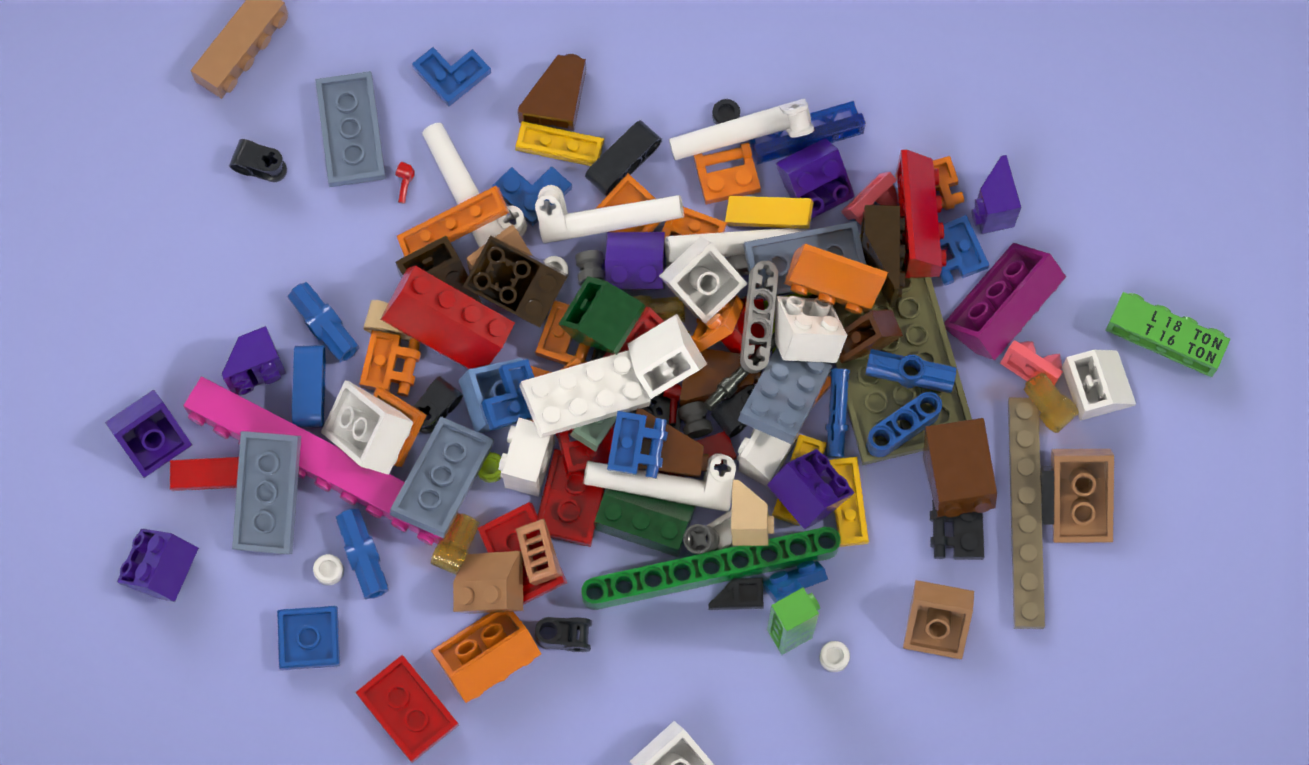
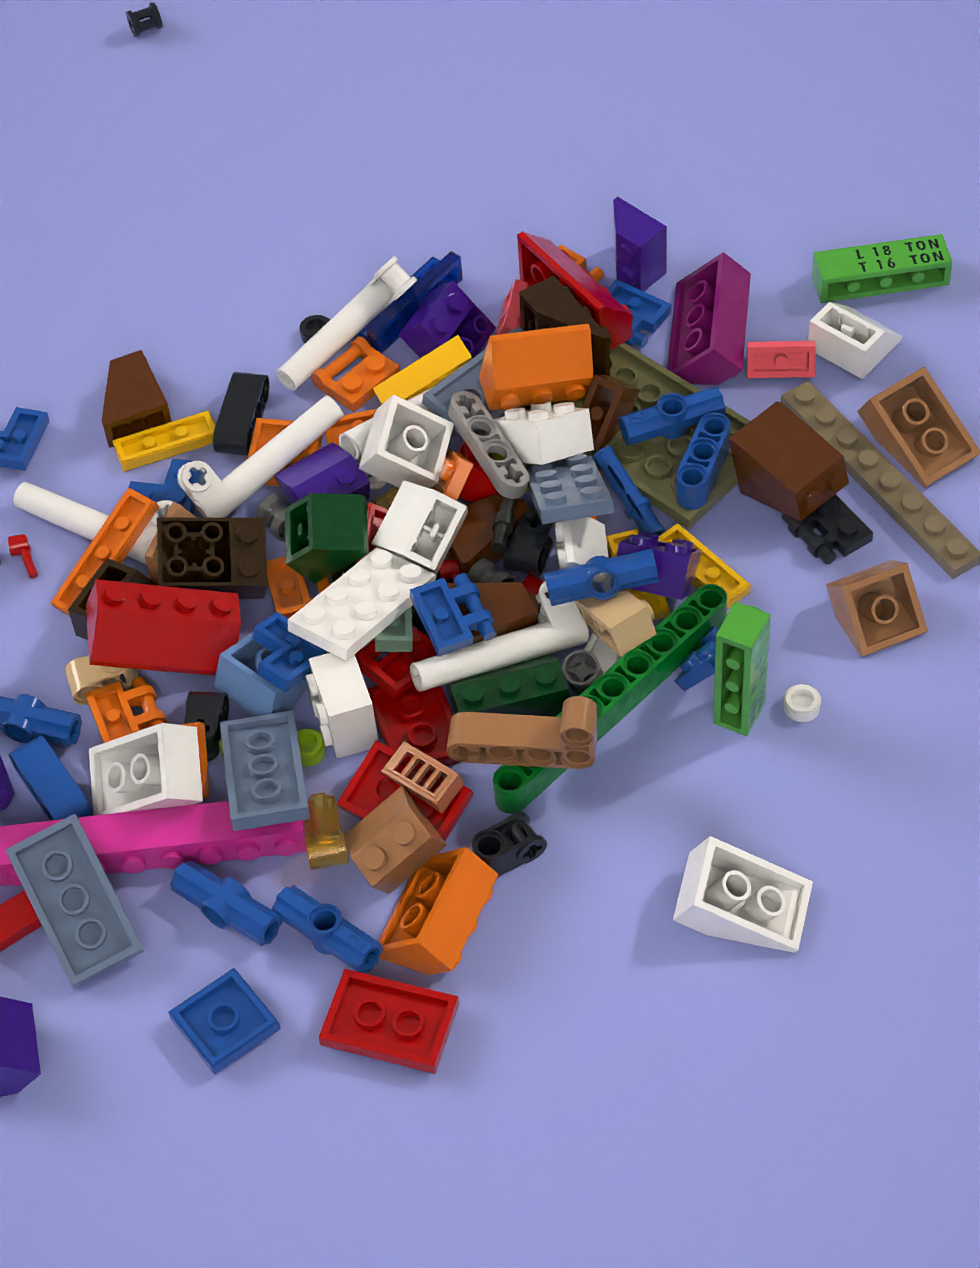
camera: 30 degrees left, 20 degrees down
(328, 569) = (197, 944): white tile -> none
(414, 634) = (342, 940): none -> blue piece
(639, 588) = (527, 739): none -> medium nougat beam
(740, 594) = (661, 706): black tile -> none
(755, 483) = (624, 571): none -> blue piece
(1047, 494) = (883, 439): black tile -> none
(1054, 408) = (833, 376): clear yellow piece -> none

